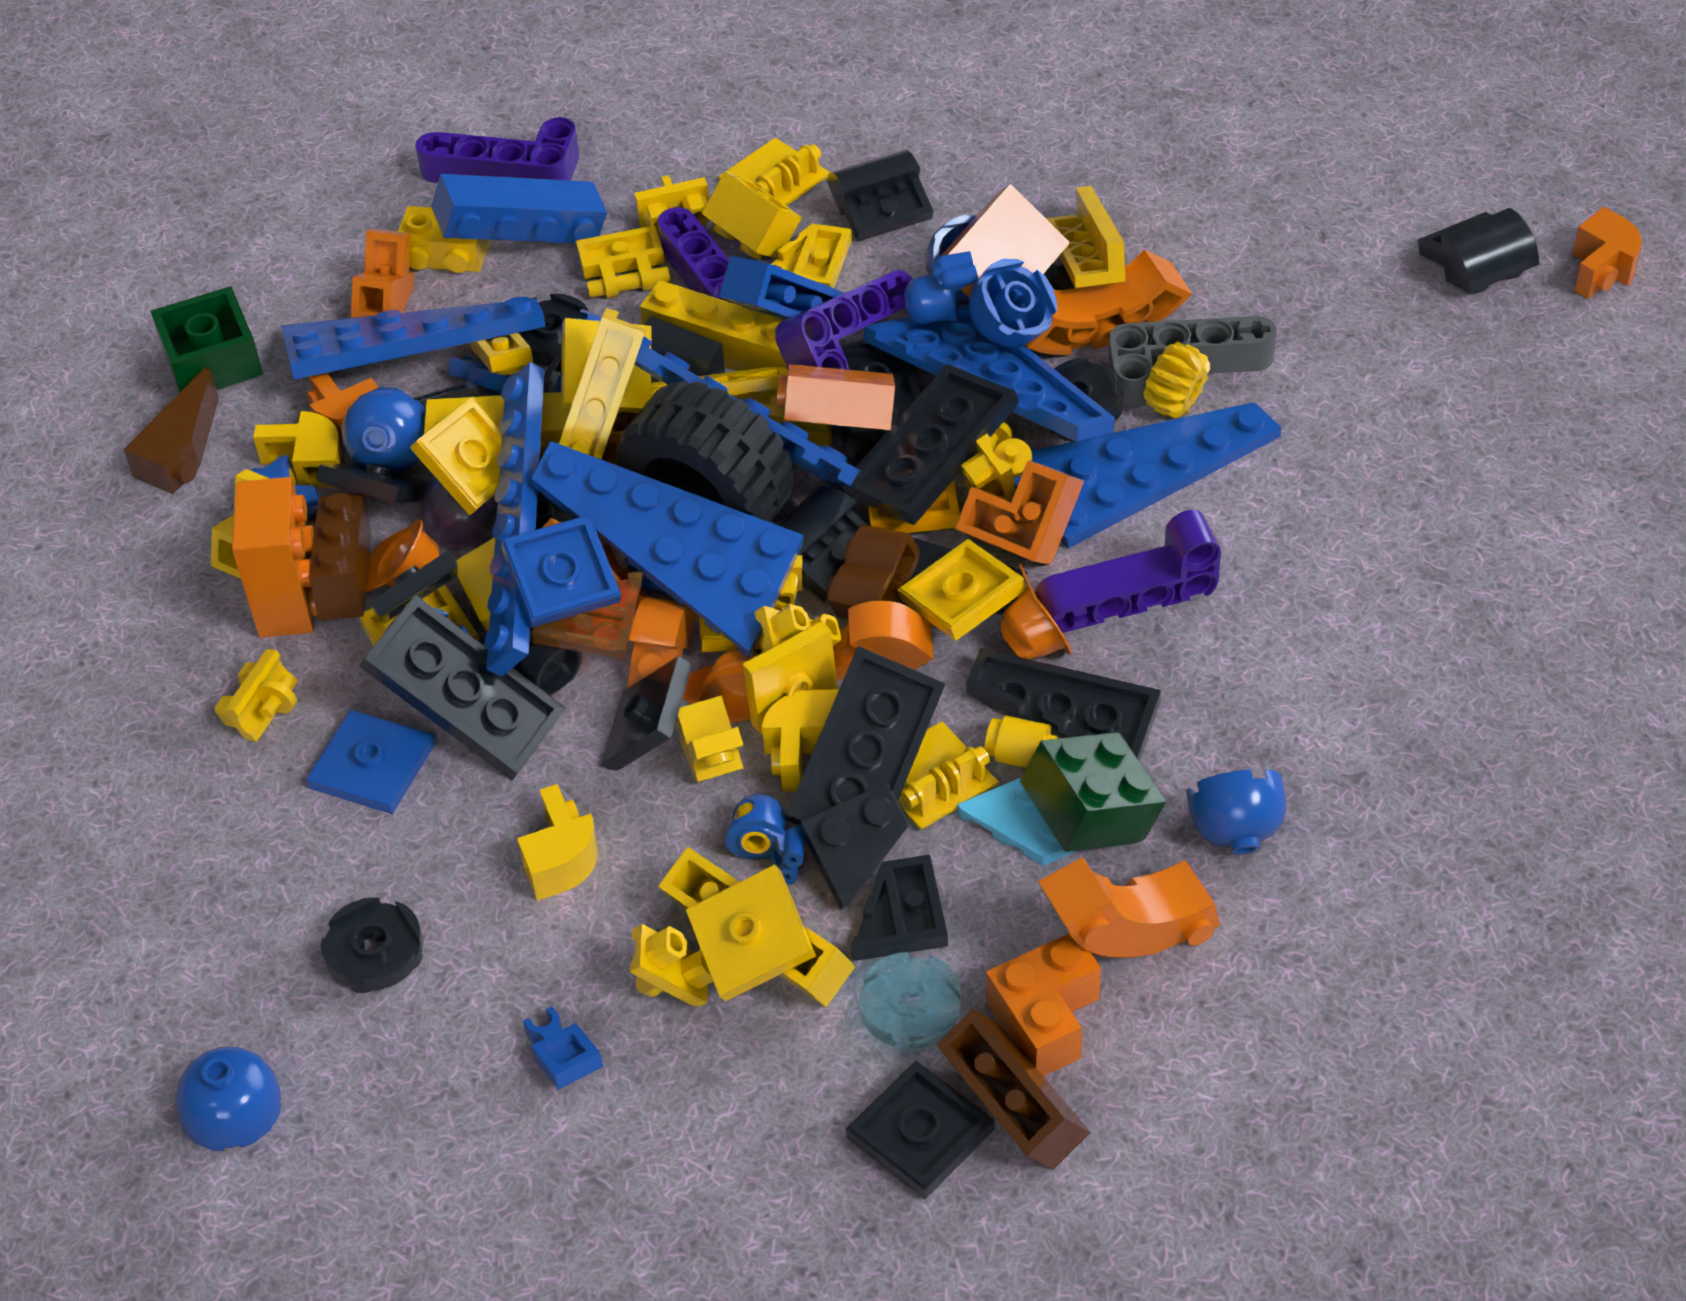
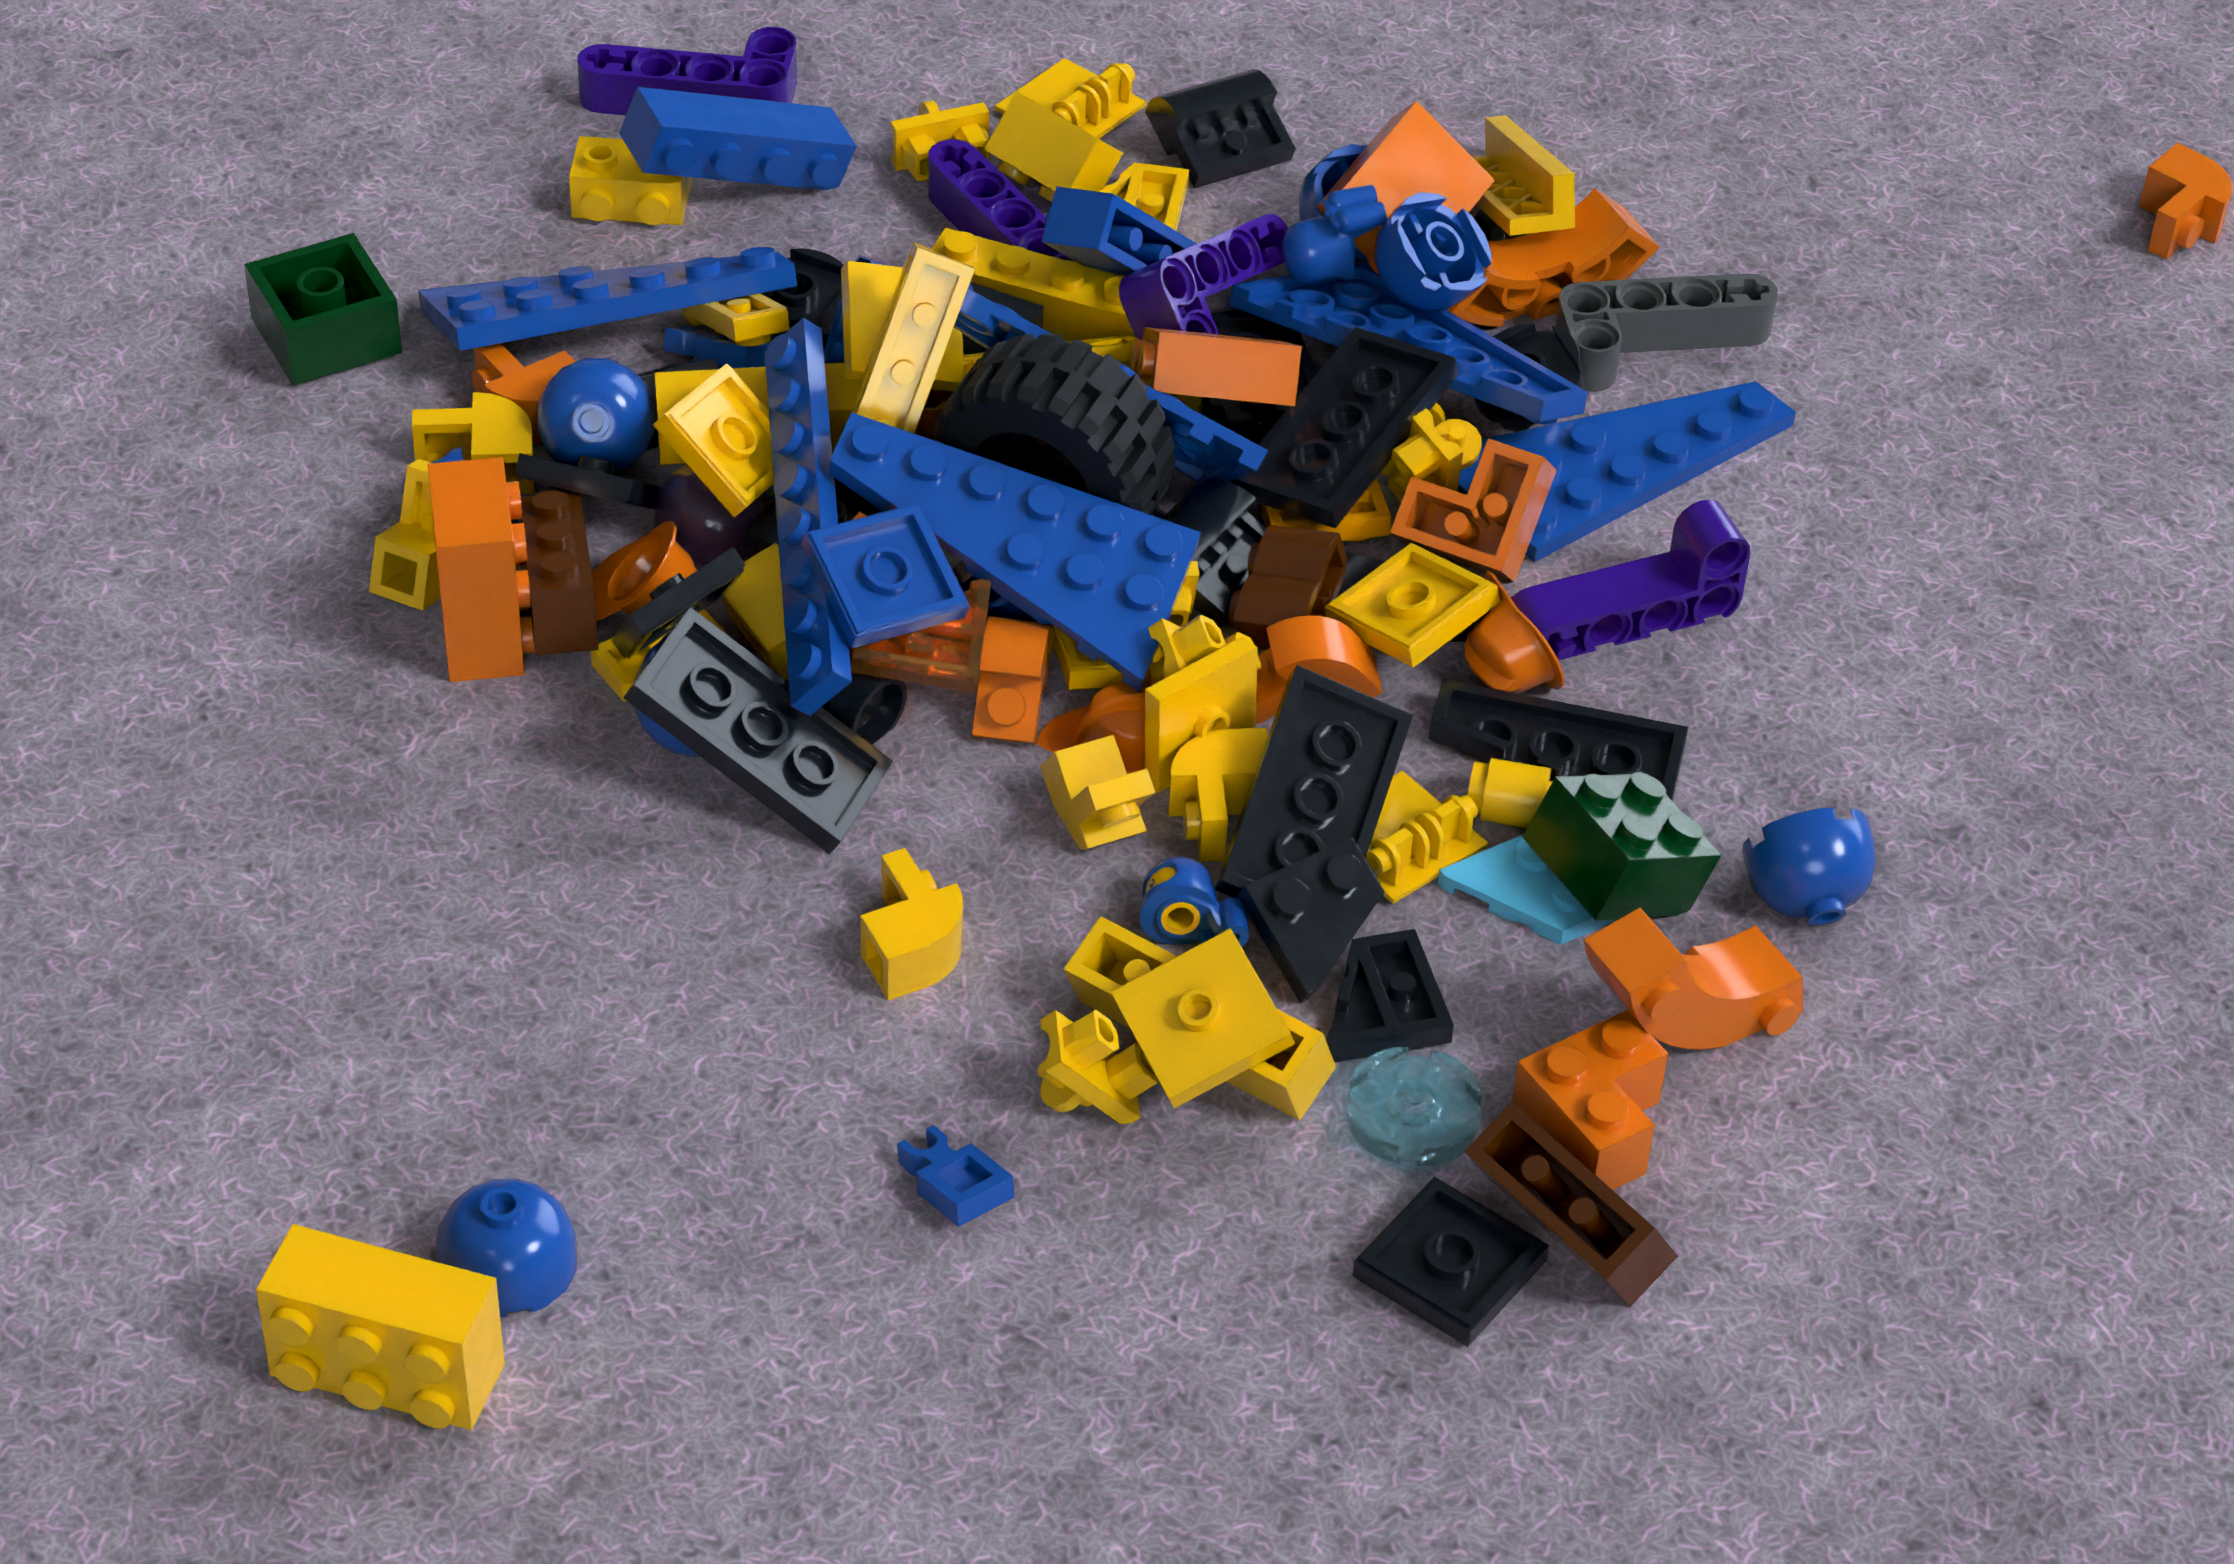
camera: 10 degrees left, 5 degrees down
(120, 1166) = (381, 1327): none -> yellow brick
(175, 440) = (293, 435): reddish brown slope -> none
(263, 692) = (469, 751): yellow hips -> none
(371, 761) = (633, 832): blue plate -> none
(375, 968) = (682, 1085): black plate -> none
(386, 276) = (560, 220): orange brick -> none
(622, 253) = (880, 199): yellow plate -> none
(646, 714) = (1010, 763): black plate -> none
(1176, 380) = (1654, 352): yellow gear -> none
(1482, 250) = (2027, 196): black brick -> none

